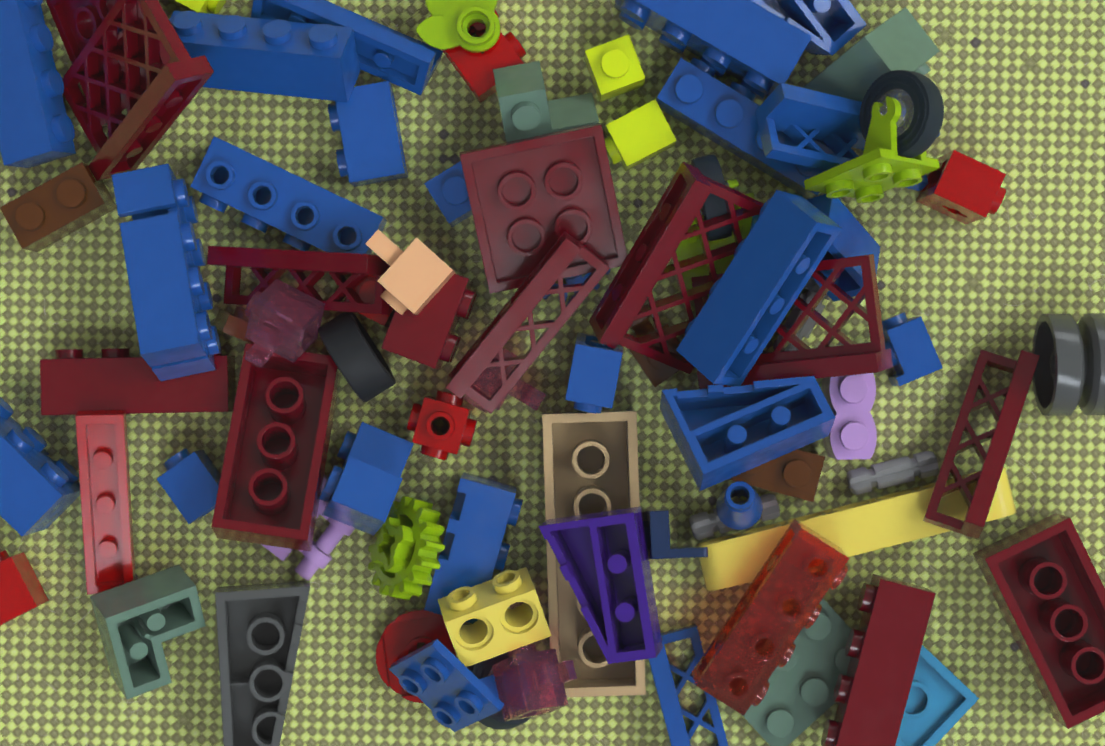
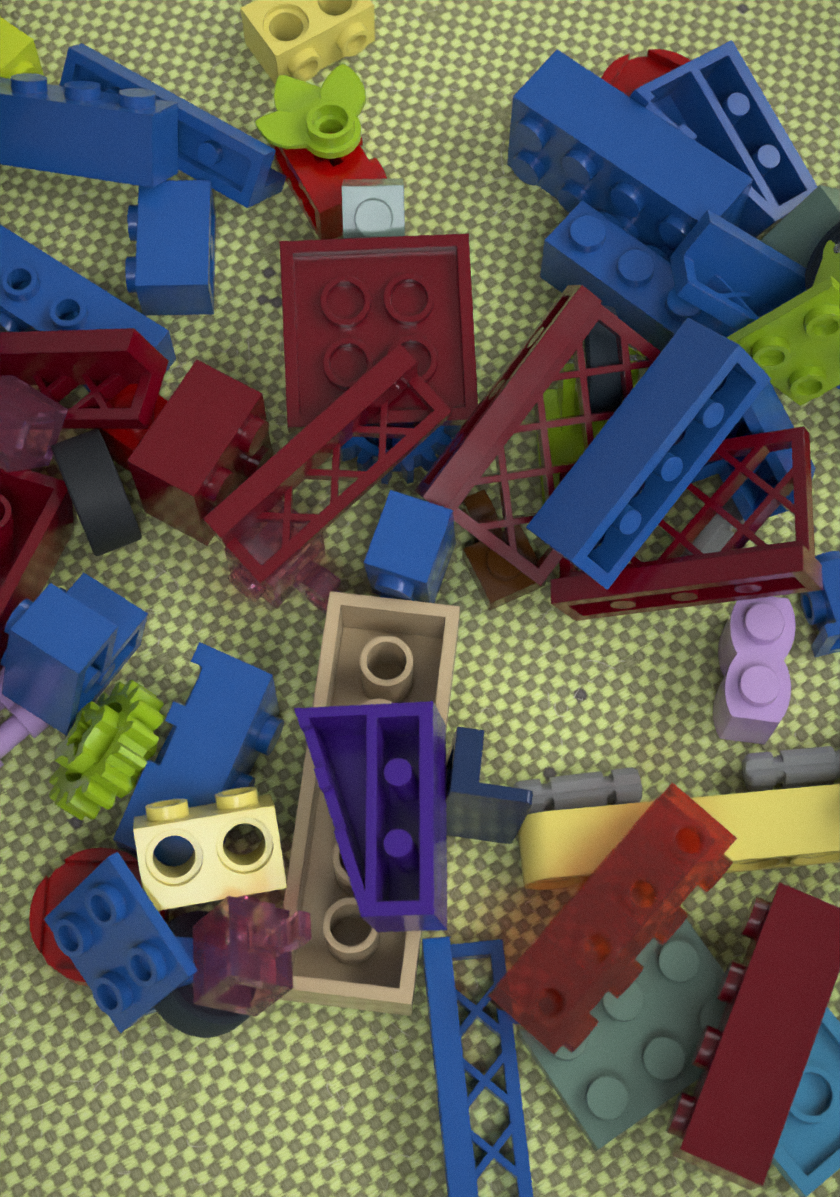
camera: 10 degrees right, 20 degrees down
(412, 275) = (185, 363): light nougat brick -> none
(451, 194) = (260, 325): blue brick -> none
(458, 416) = (196, 619): red brick -> none
(614, 68) = (496, 214): neon yellow brick -> none
(638, 136) = (513, 294): neon yellow brick -> none
(735, 515) = (586, 759): blue cone -> none
(744, 426) = (607, 635): blue wedge -> none
(791, 474) = (637, 724): reddish brown brick -> none

